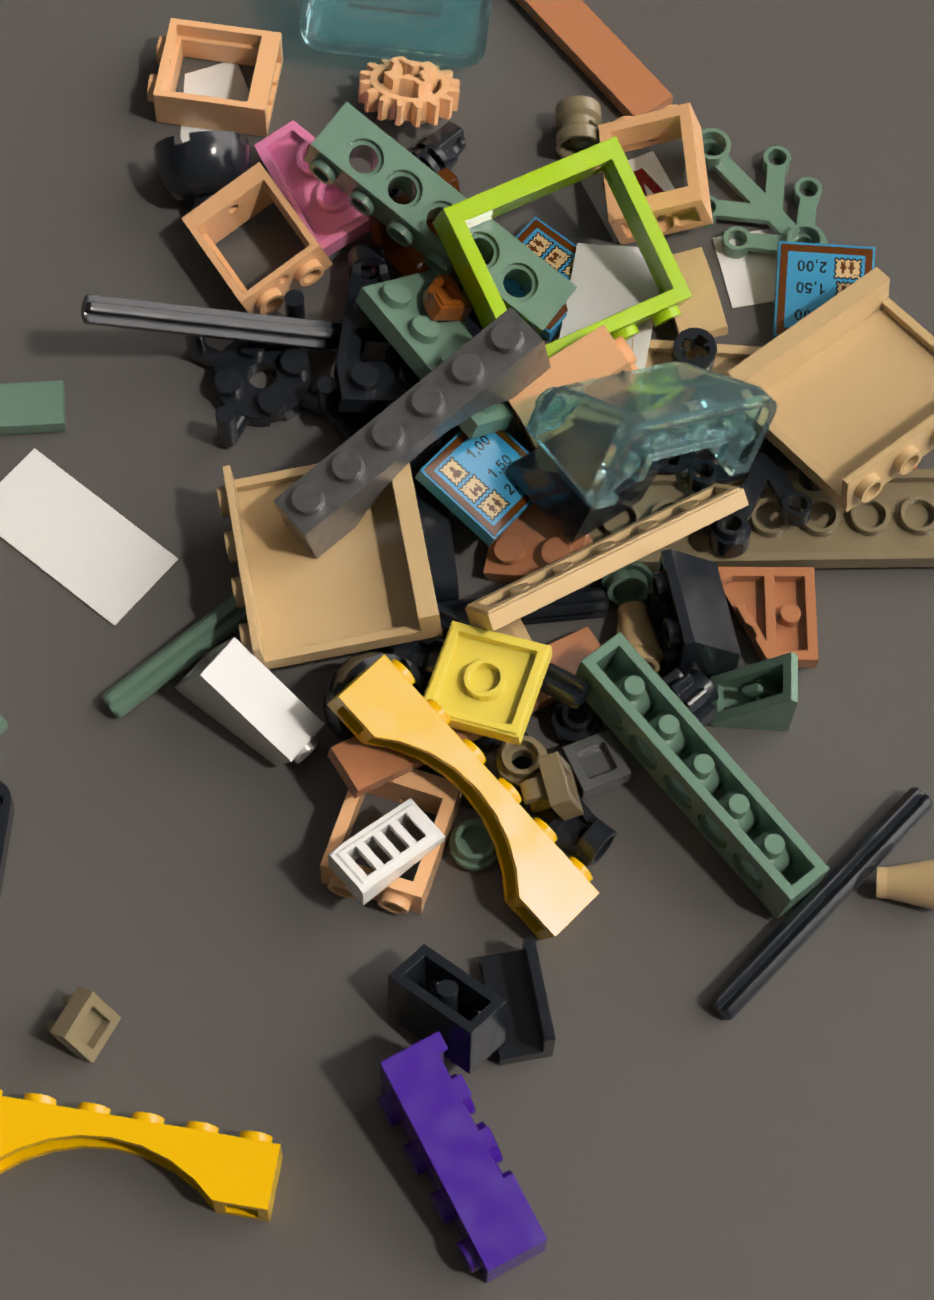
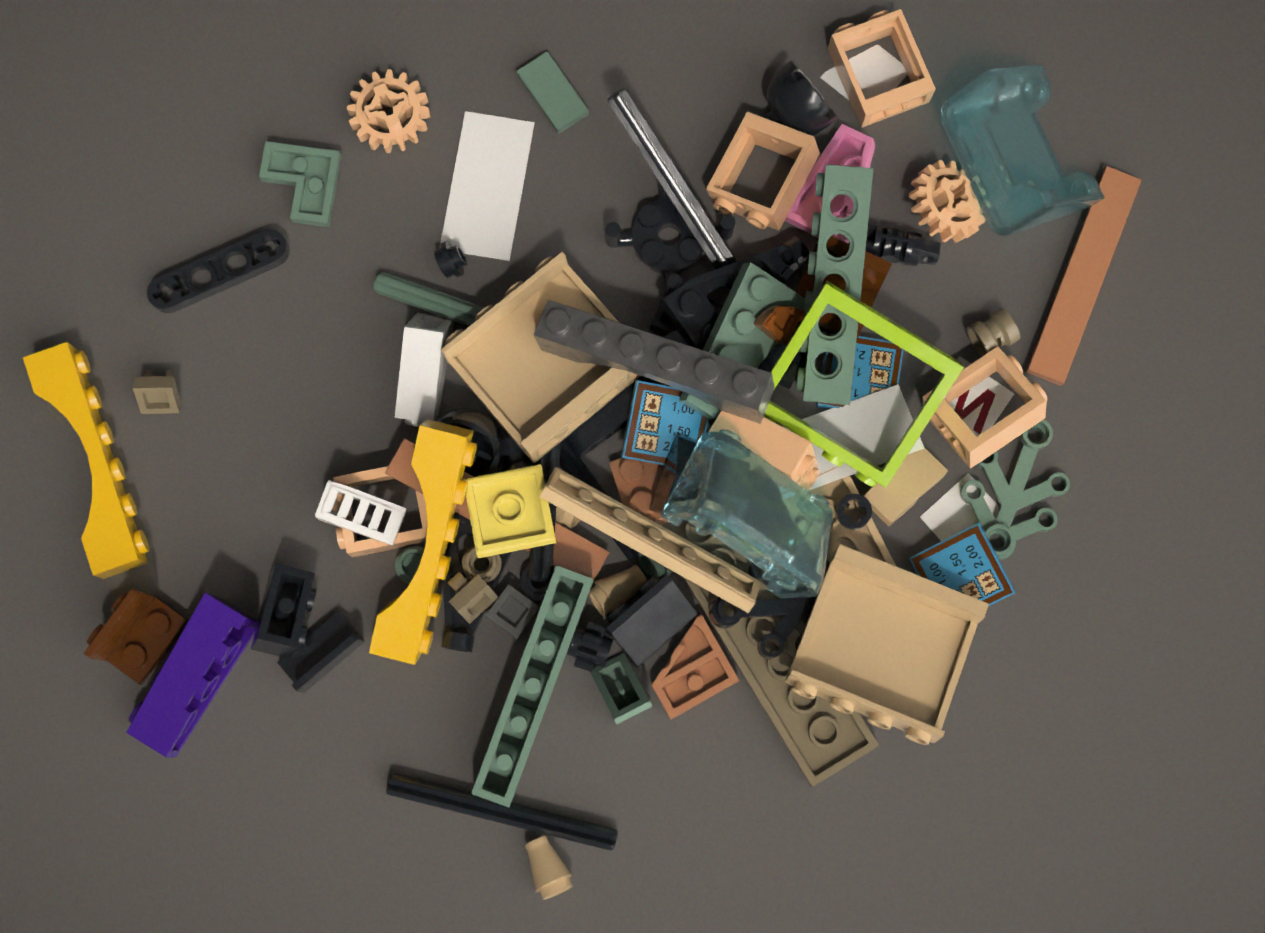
camera: 60 degrees right, 15 degrees up
(139, 611) = (450, 259): none -> black plate
(376, 1203) = (136, 634): none -> reddish brown bracket

